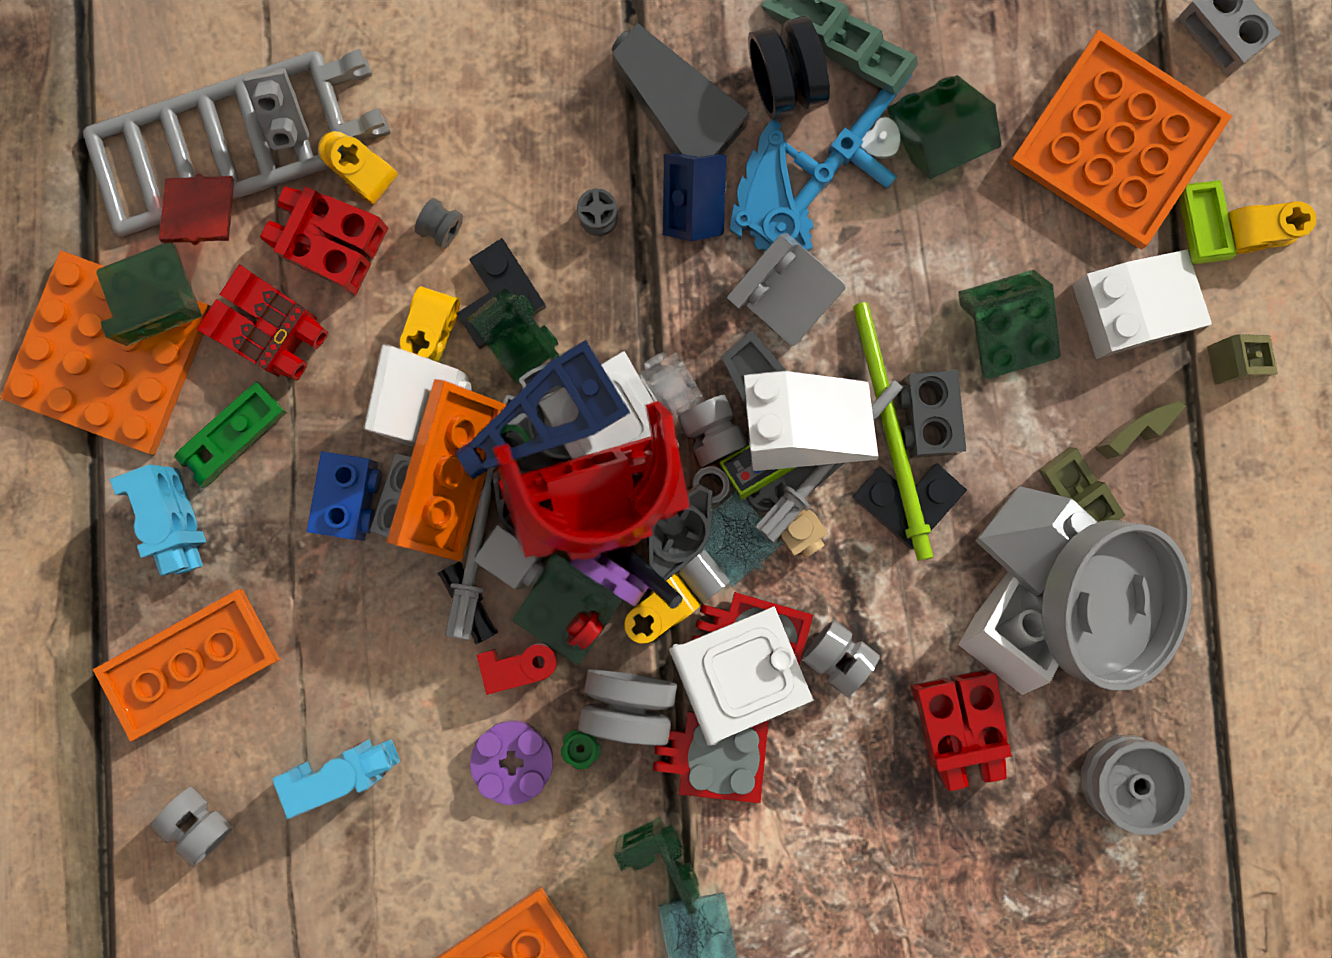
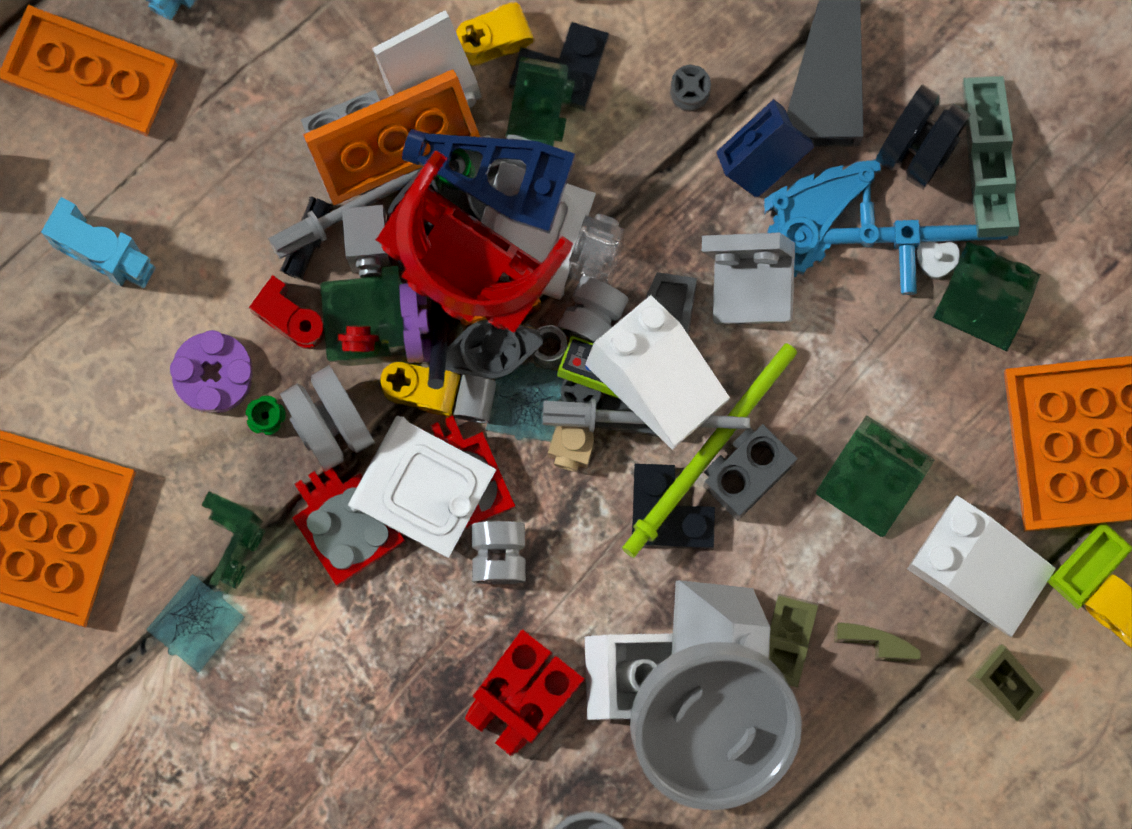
camera: 55 degrees right, 5 degrees down
(344, 496) = (310, 79): blue brick -> none

